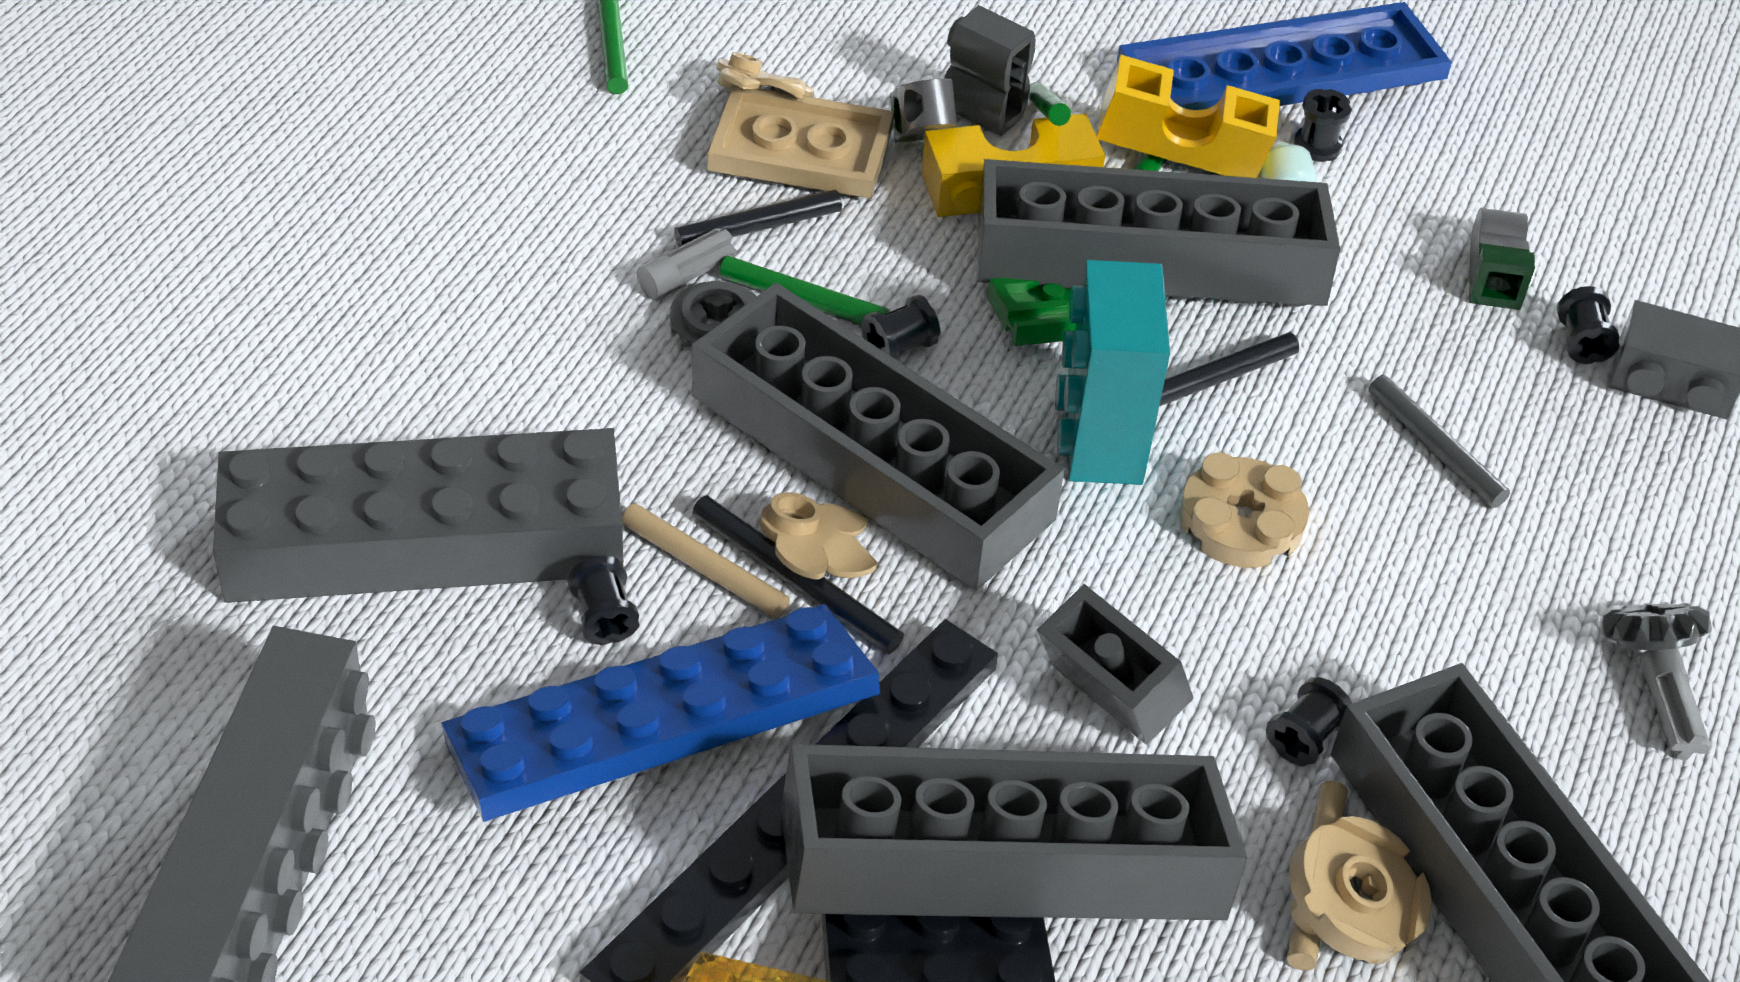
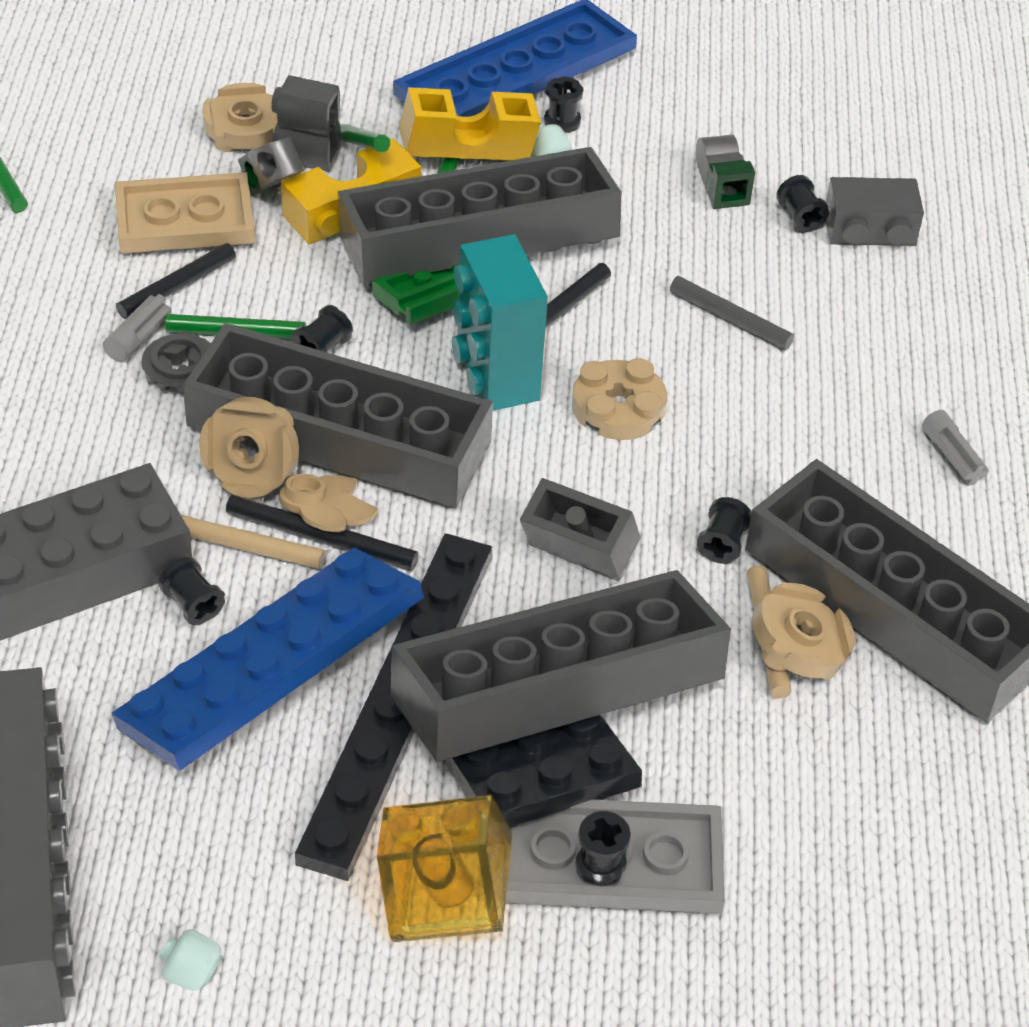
camera: 20 degrees left, 0 degrees up
(747, 74) = (119, 170): tan plate -> none
(774, 434) = (270, 429): none -> tan plate
(899, 40) = (224, 121): none -> tan plate
(1656, 626) = (926, 399): dark grey gear -> none

